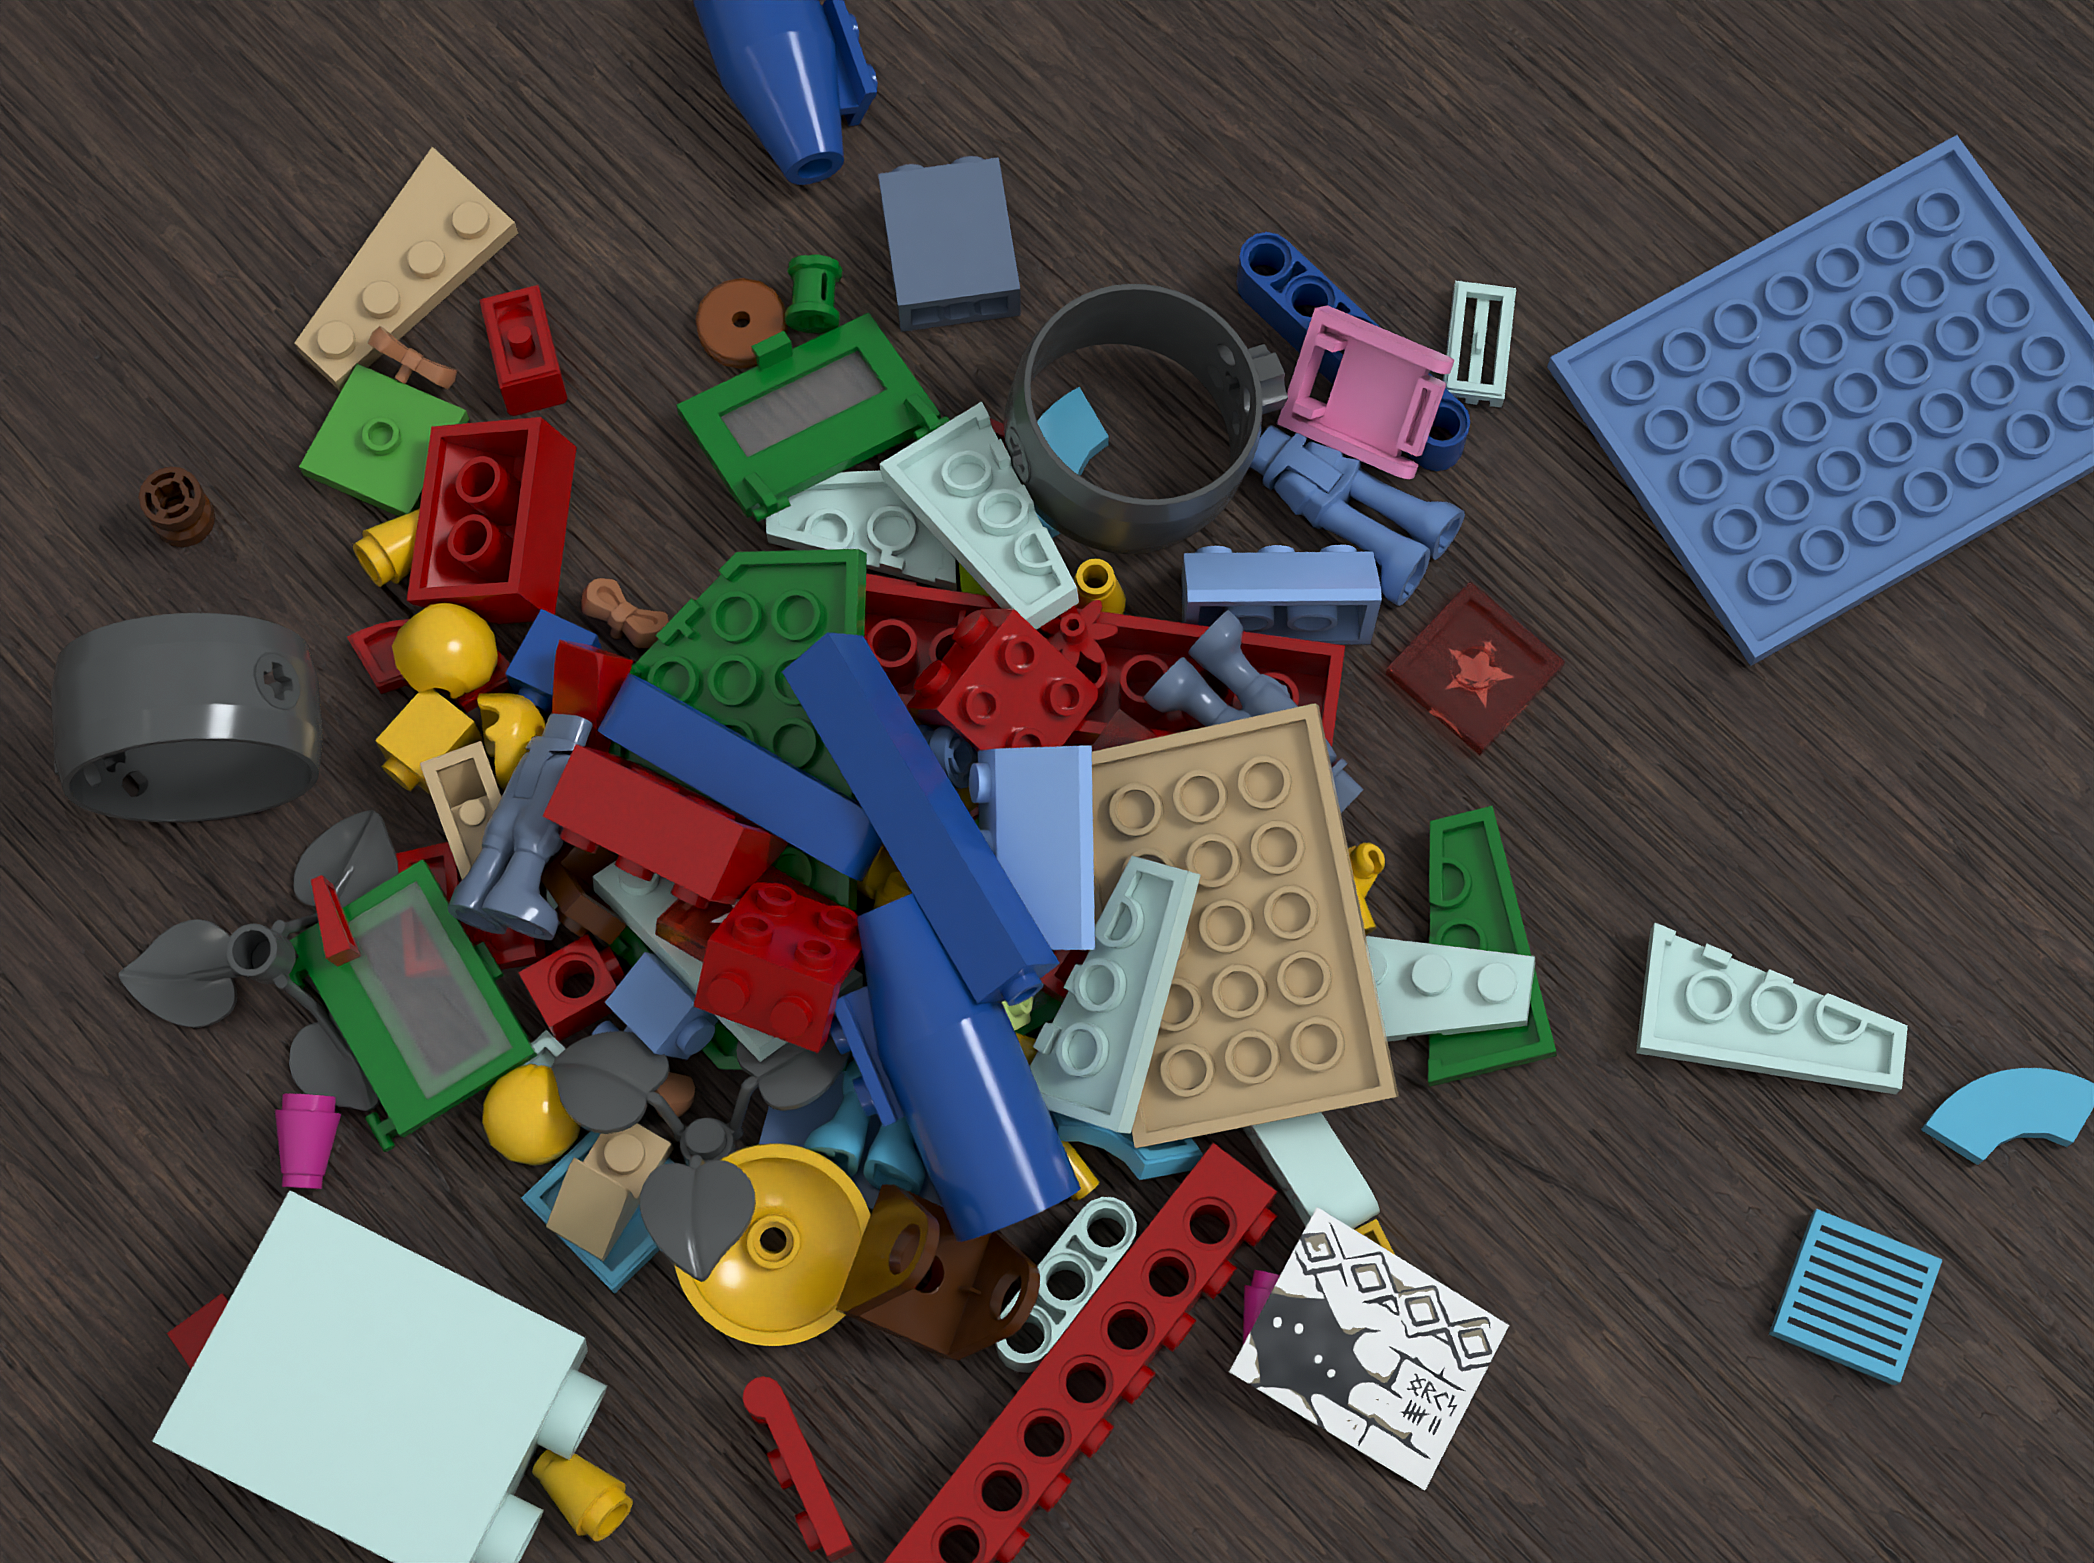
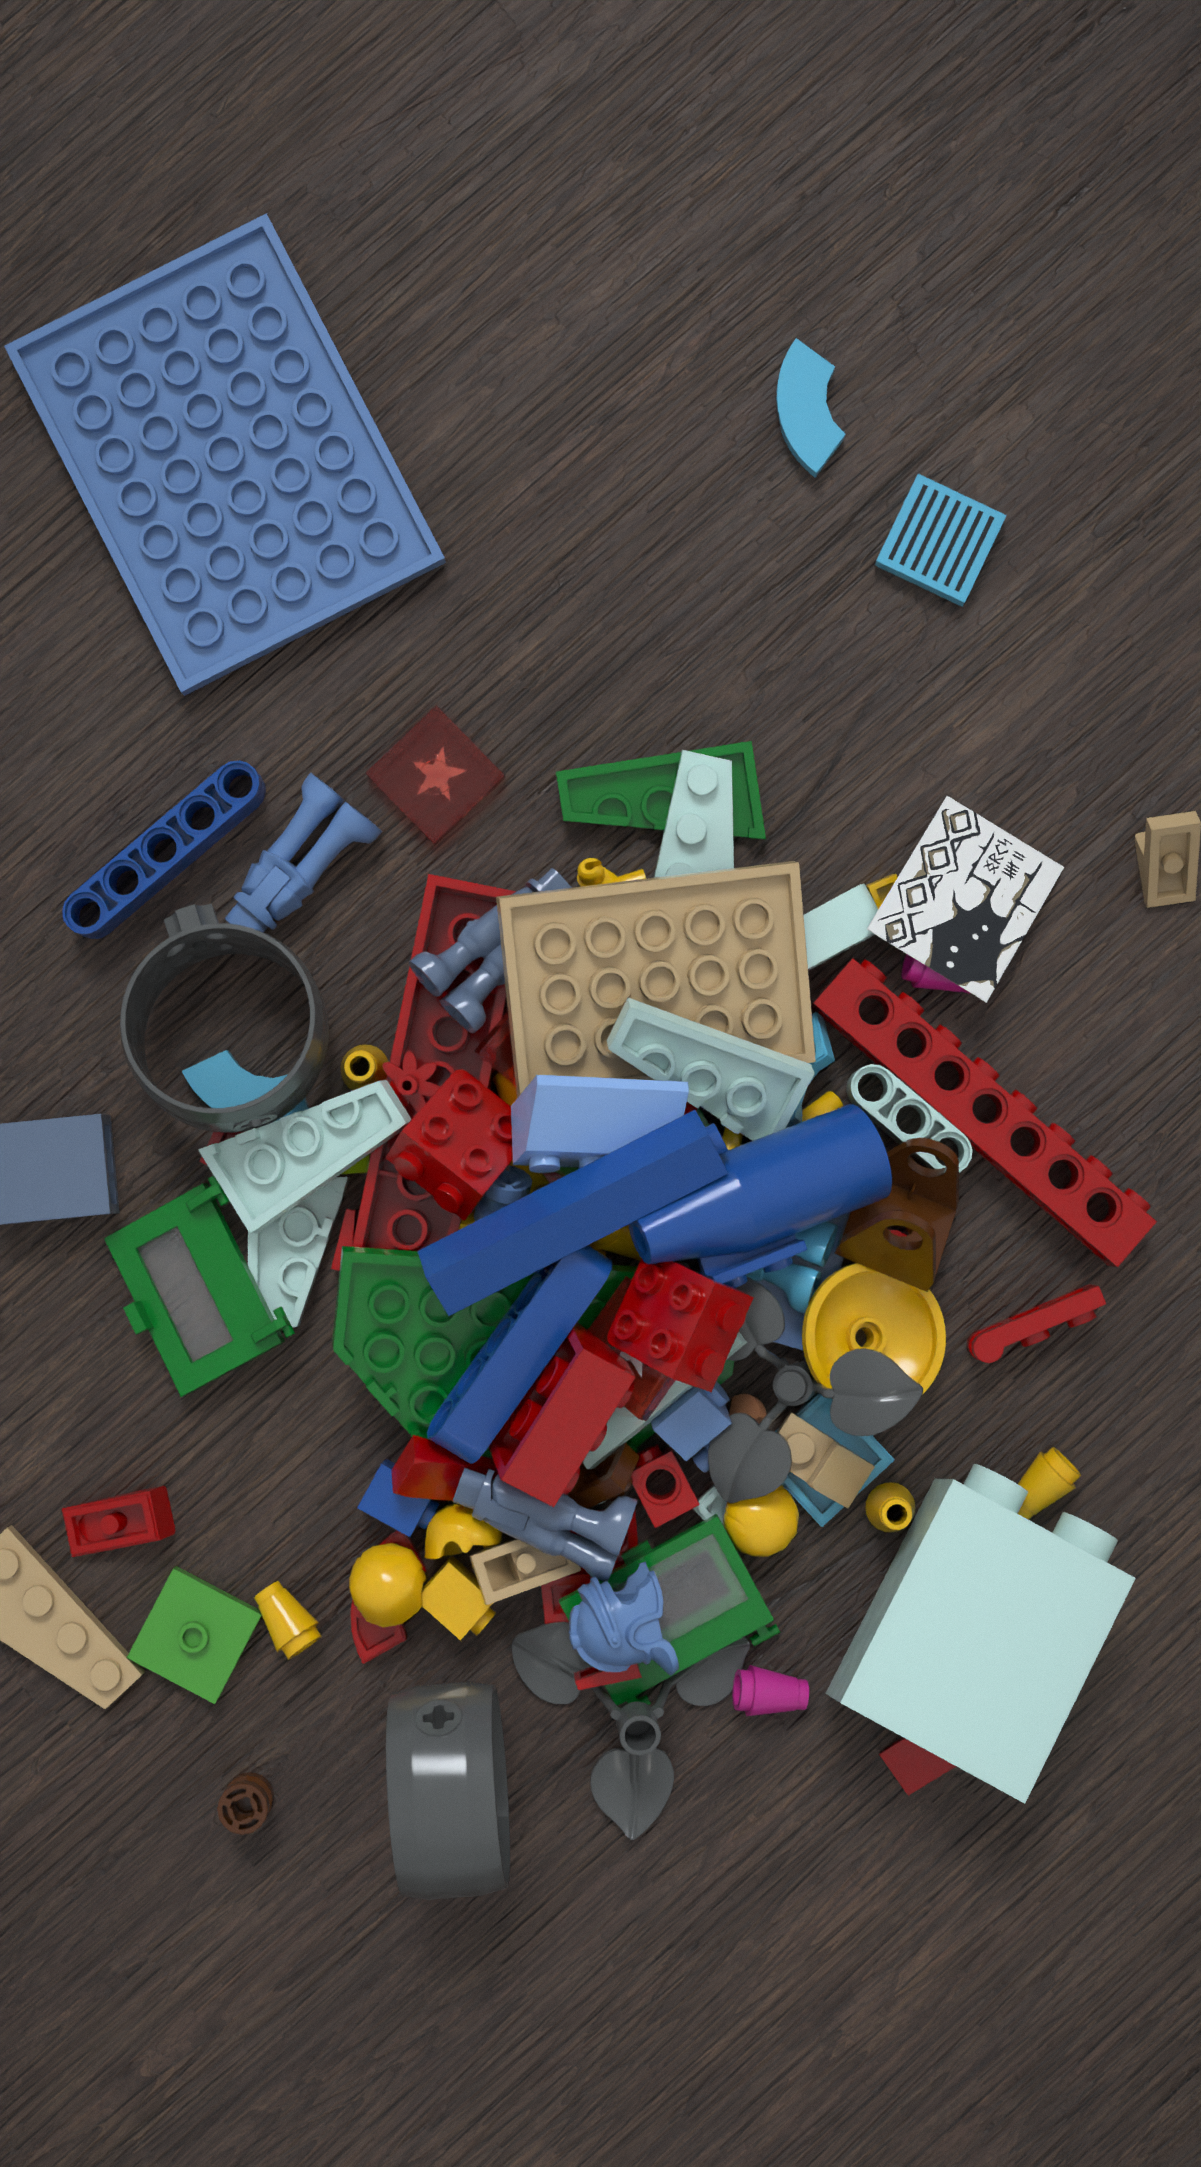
camera: 85 degrees left, 15 degrees up
(390, 923) = (621, 1626): none -> medium blue helmet
(411, 360) = (117, 1629): nougat piece -> none
(493, 518) = (275, 1546): red slope -> none
(558, 1297) = (881, 1499): none -> yellow cone
(606, 602) = (345, 1456): nougat piece -> none
(736, 301) = (86, 1346): dark orange piece -> none
(813, 293) = (87, 1282): green bush -> none
(1285, 592) = (371, 922): light blue slope -> none
(1379, 396) = (214, 829): bright pink container -> none
(1473, 389) = (200, 757): light aqua tile -> none
(1738, 1017) = (726, 601): light aqua wing -> none

